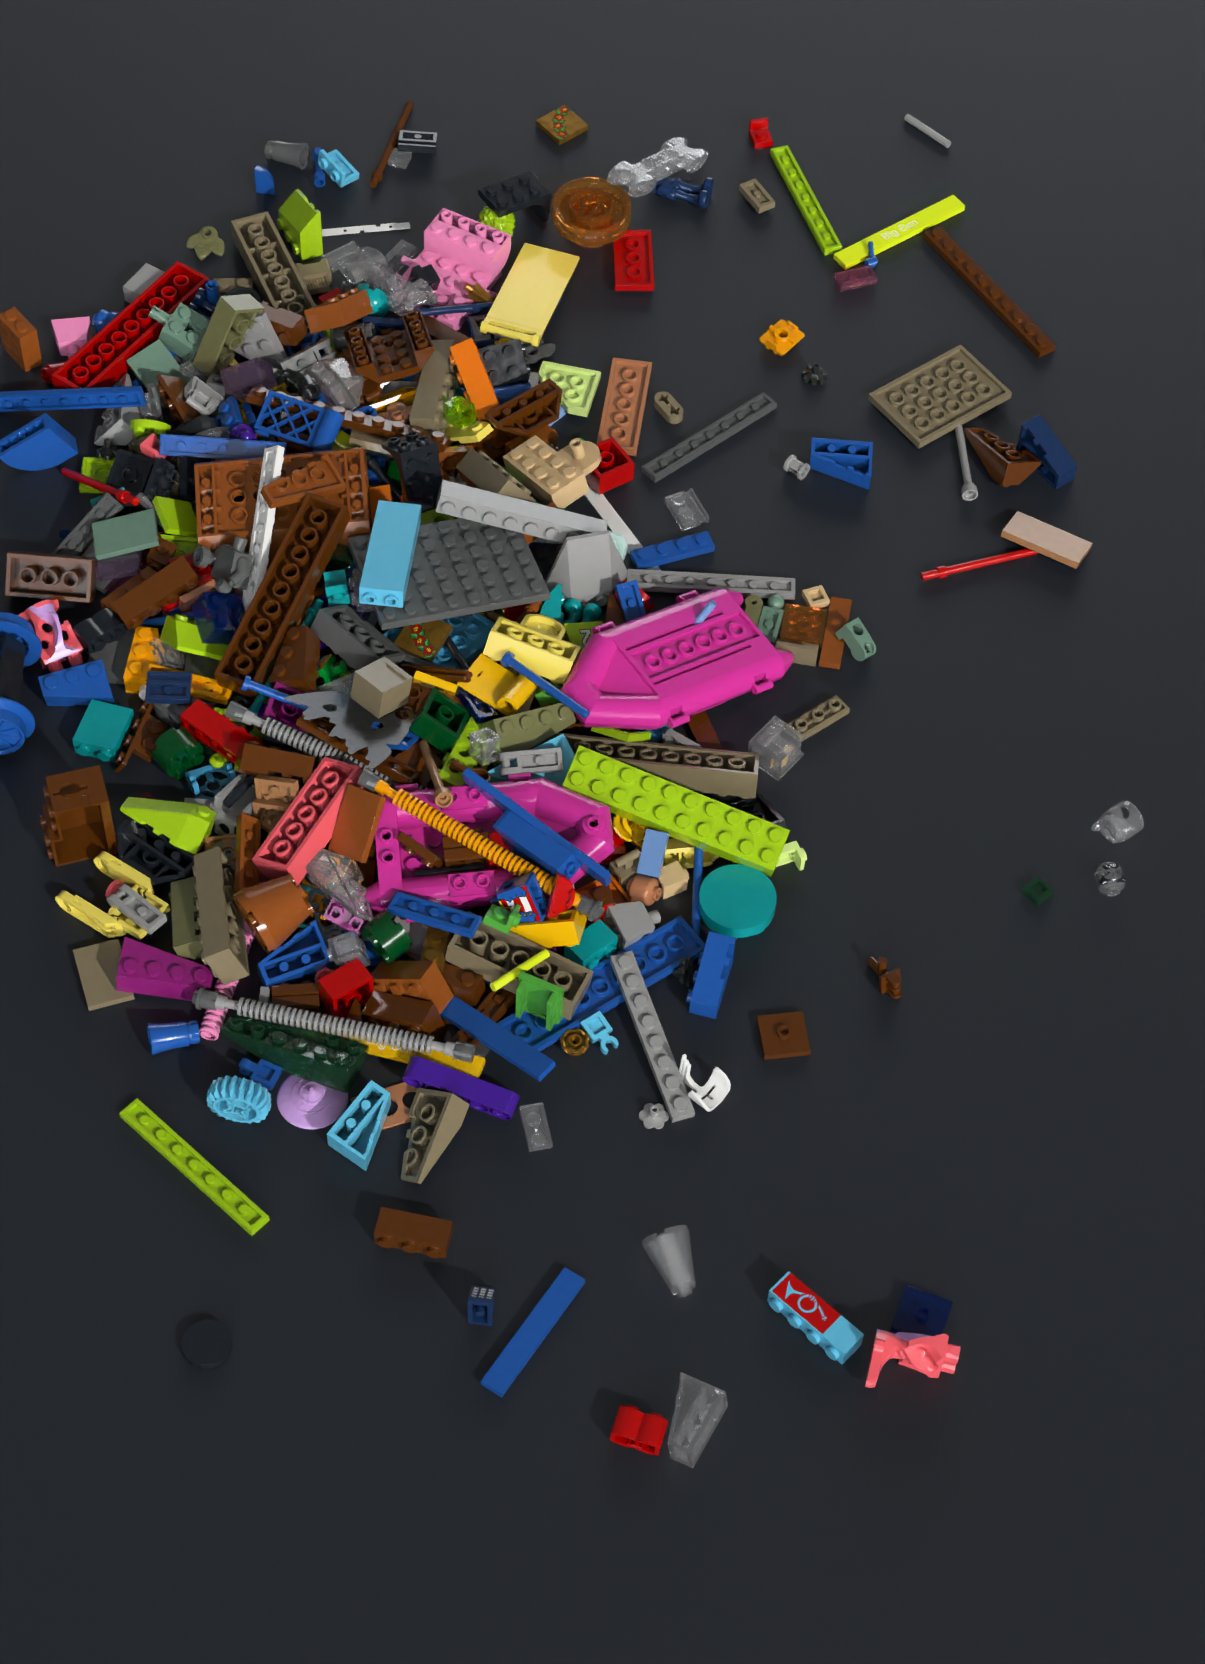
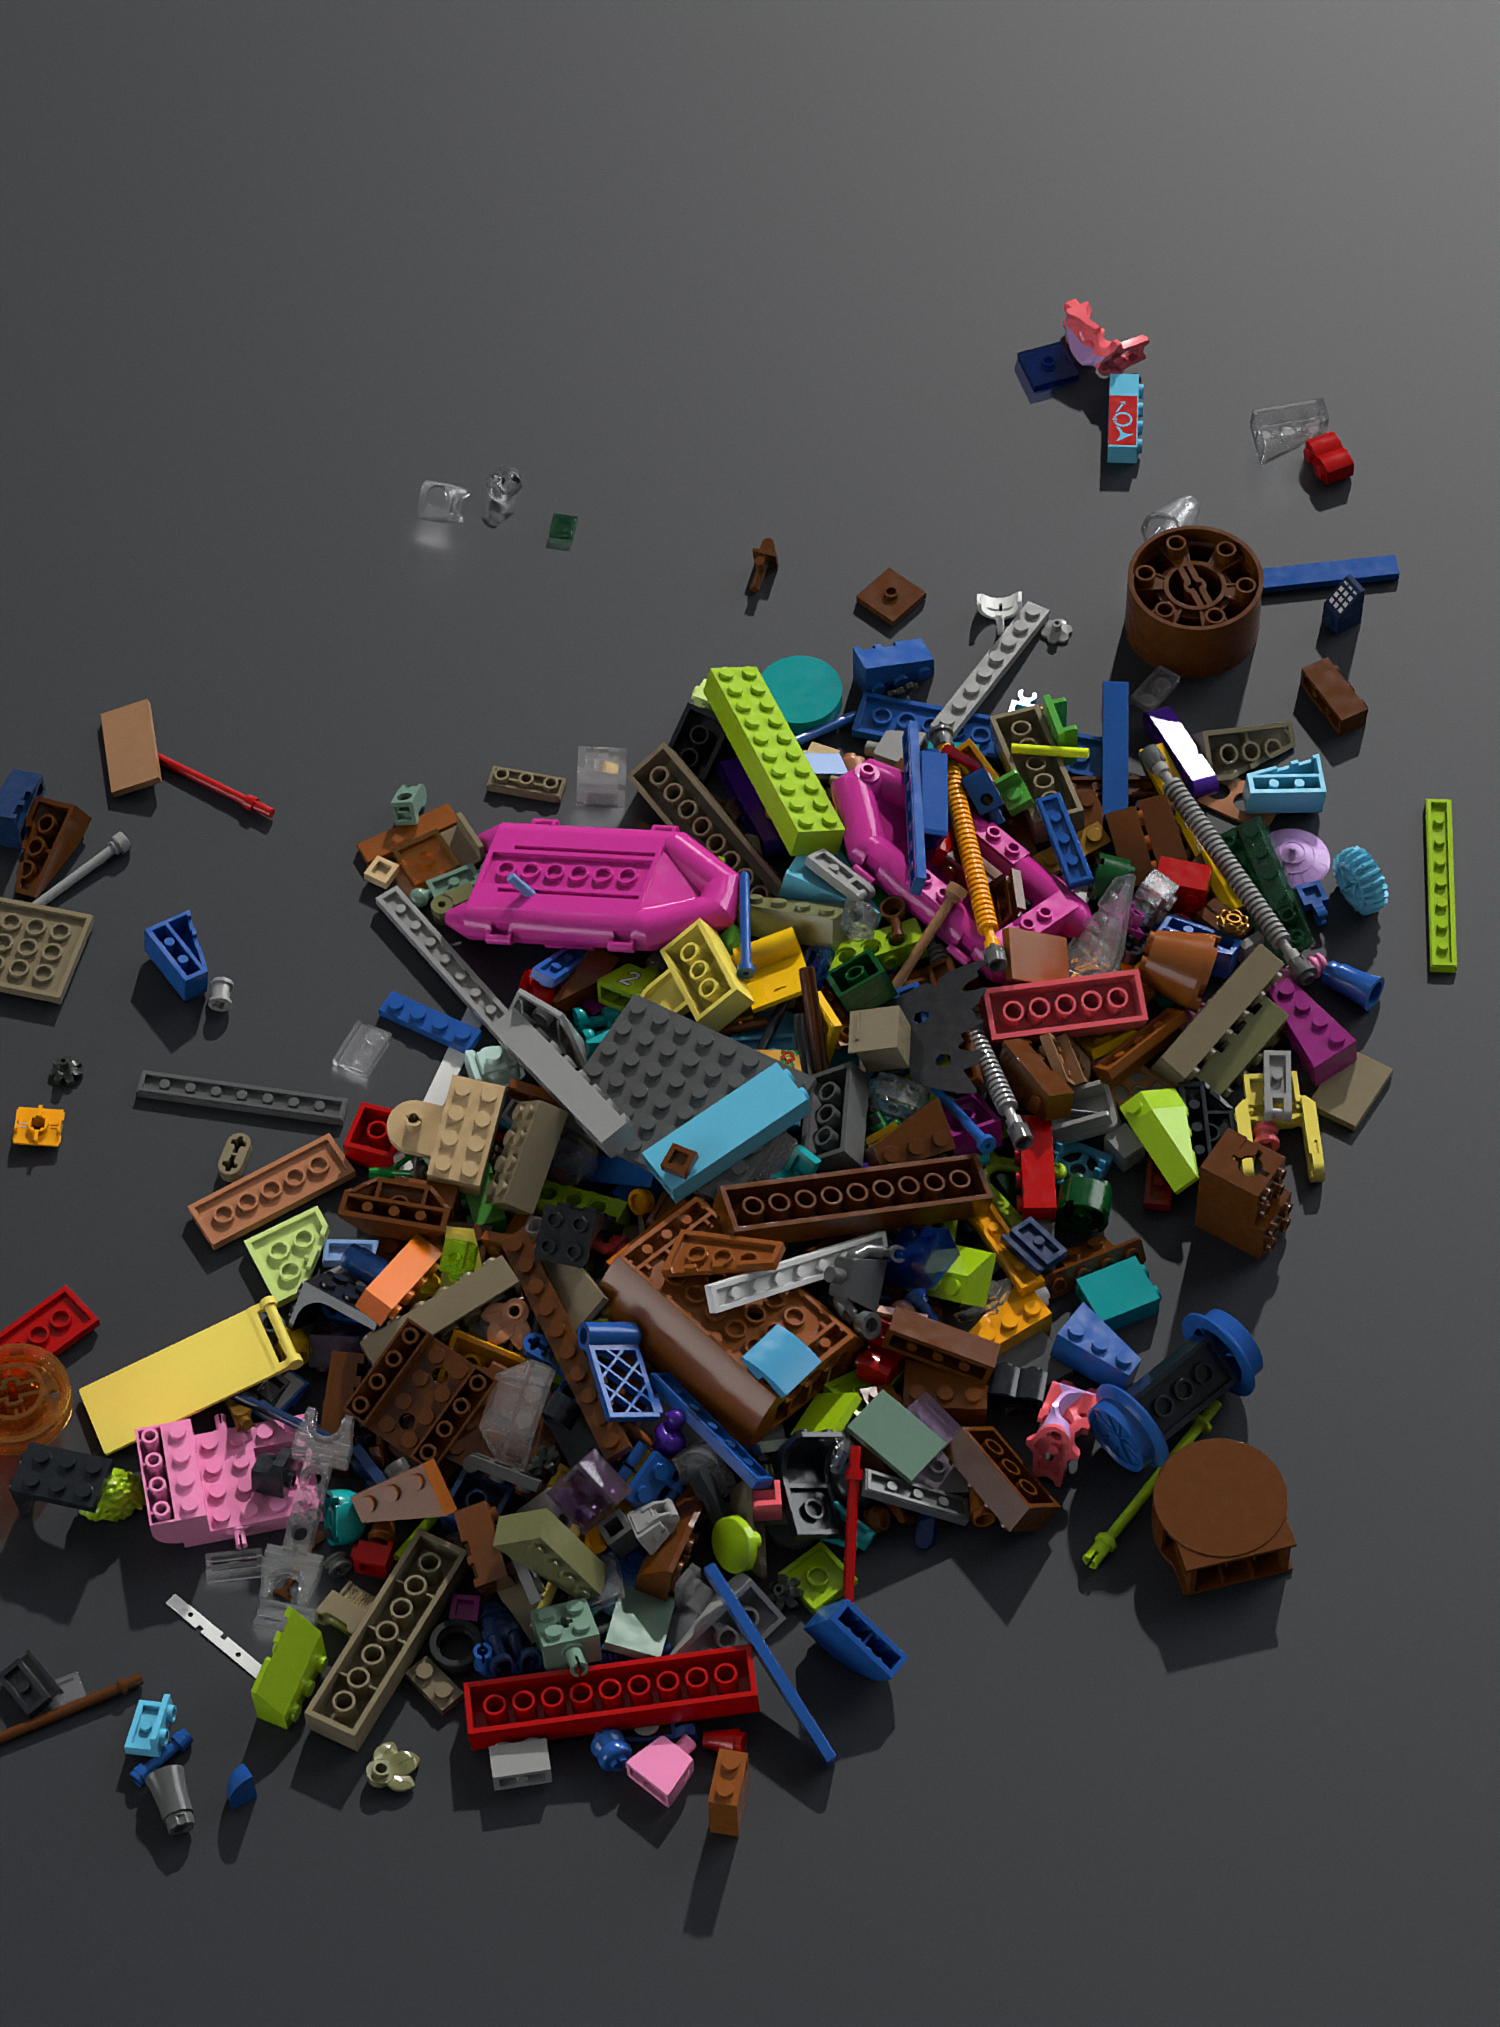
camera: 125 degrees left, 0 degrees up
(211, 474) = (780, 1360): none -> dark azure slope
(285, 978) = (1232, 922): none -> pearl gold plate
(388, 506) = (679, 1161): none -> reddish brown plate
(576, 1190) = (1194, 579): none -> reddish brown wheel

